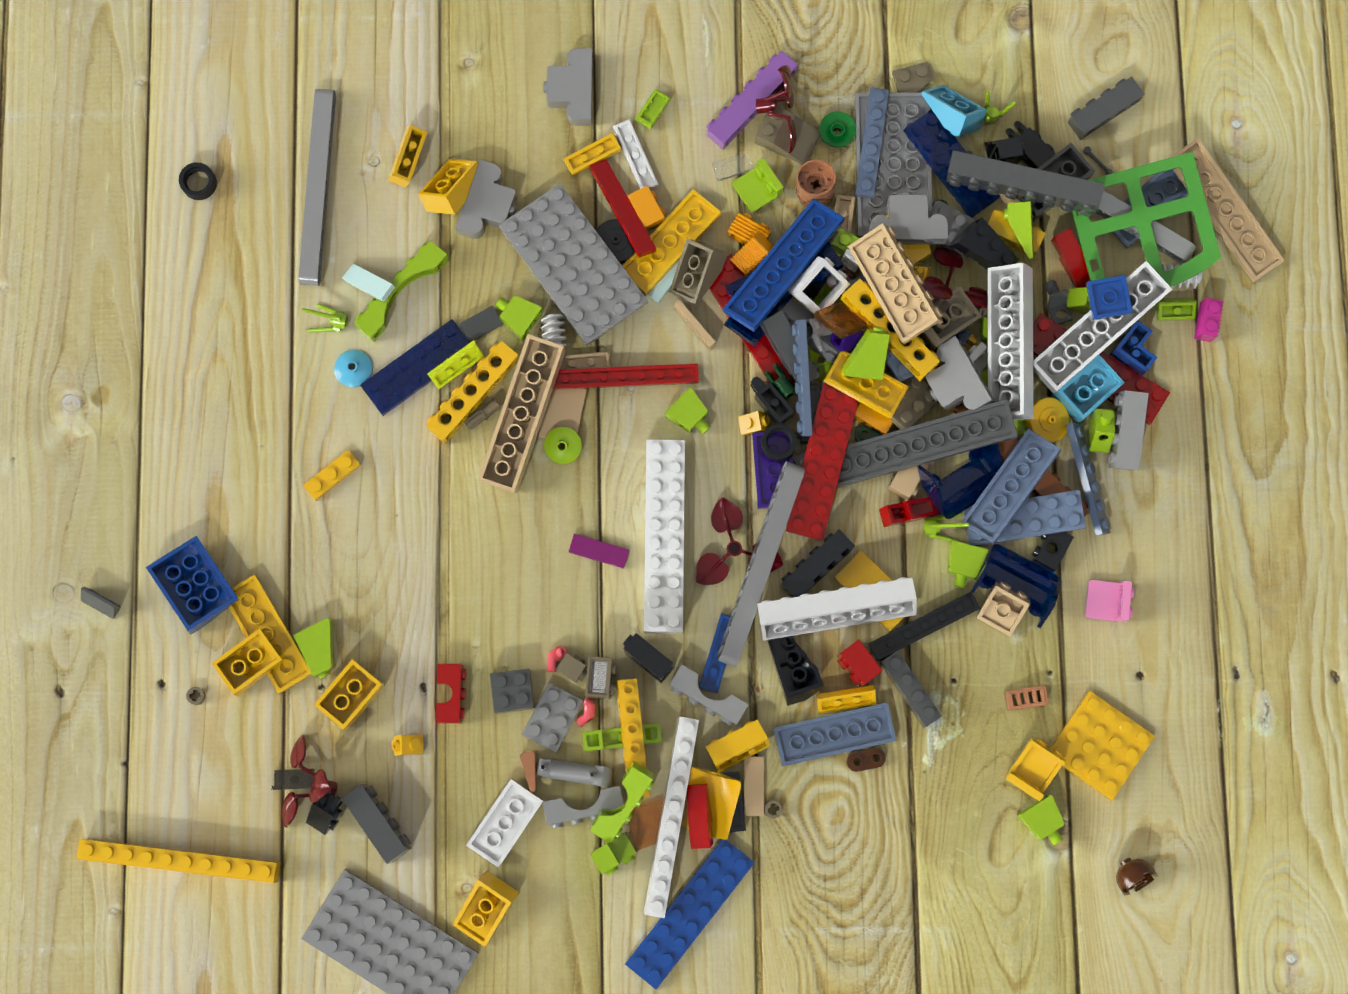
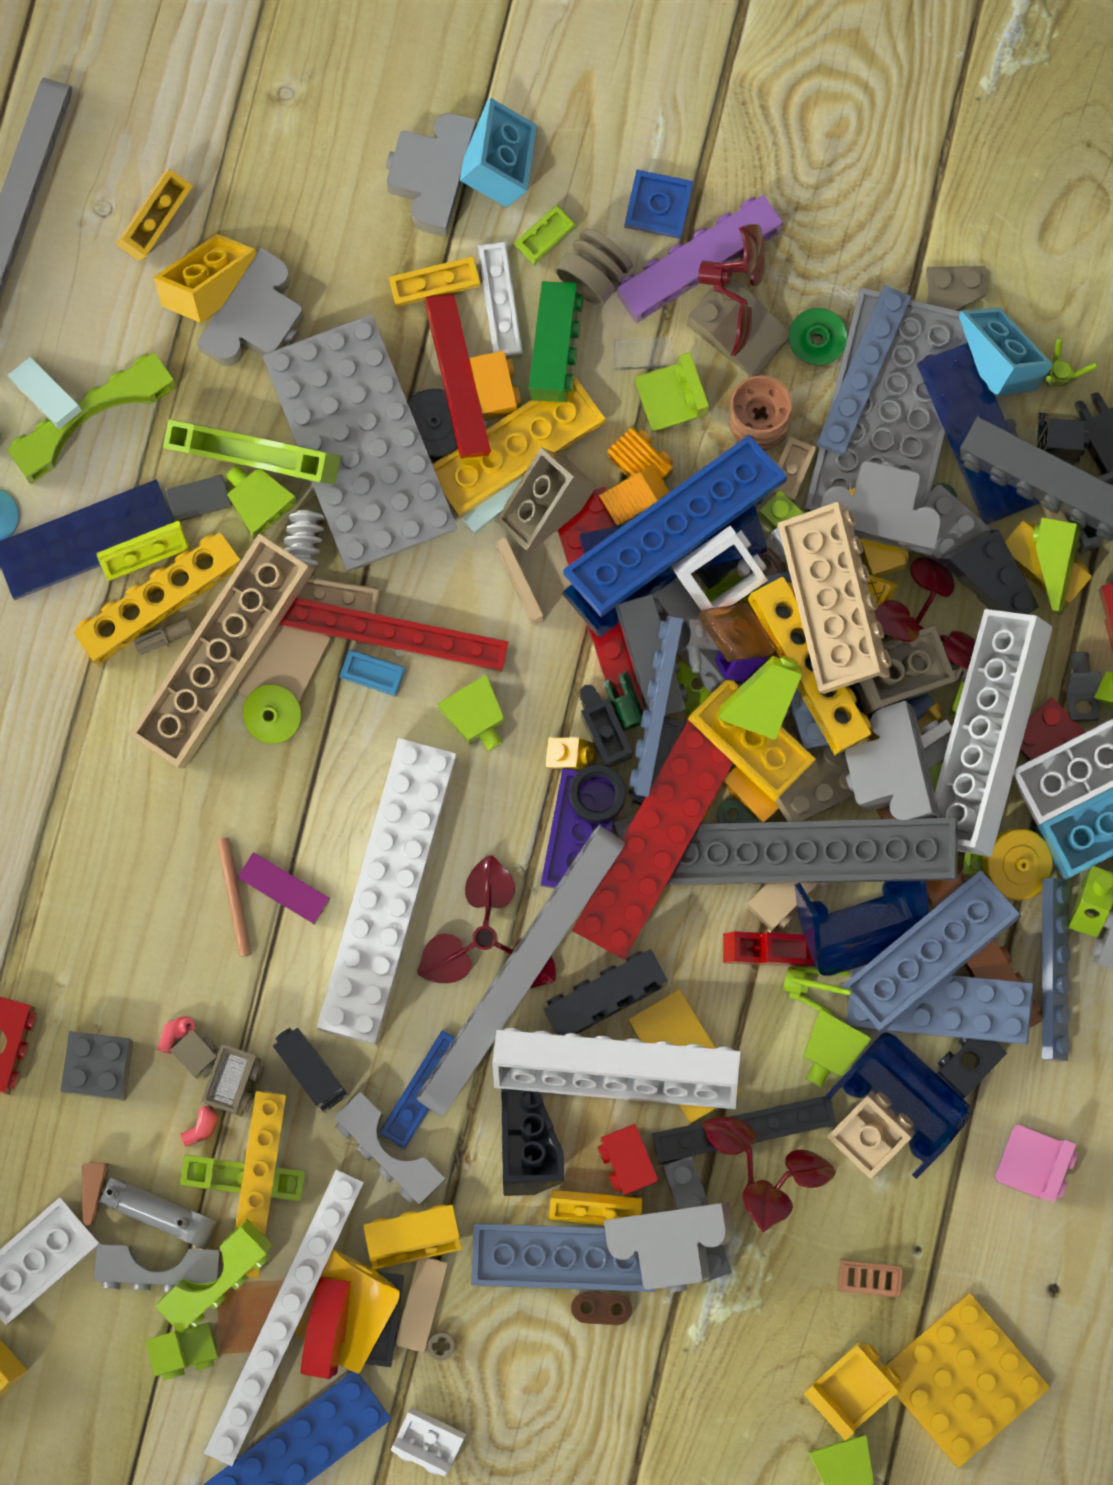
camera: 15 degrees right, 0 degrees up
(508, 285) = (252, 451): none -> lime arch
(552, 717) = (147, 1121): light grey plate -> none
(569, 564) = (234, 897): none -> nougat bar
(612, 66) = (500, 154): none -> medium azure slope
(618, 404) = (372, 672): none -> dark azure tile
(677, 173) = (555, 341): none -> green brick
(689, 120) = (593, 266): none -> dark tan wheel
(718, 73) = (658, 204): none -> blue plate
(781, 871) = (428, 1442): none -> white bracket
(900, 707) = (671, 1243): none -> light grey brick
(948, 666) = (763, 1201): none -> dark red plant

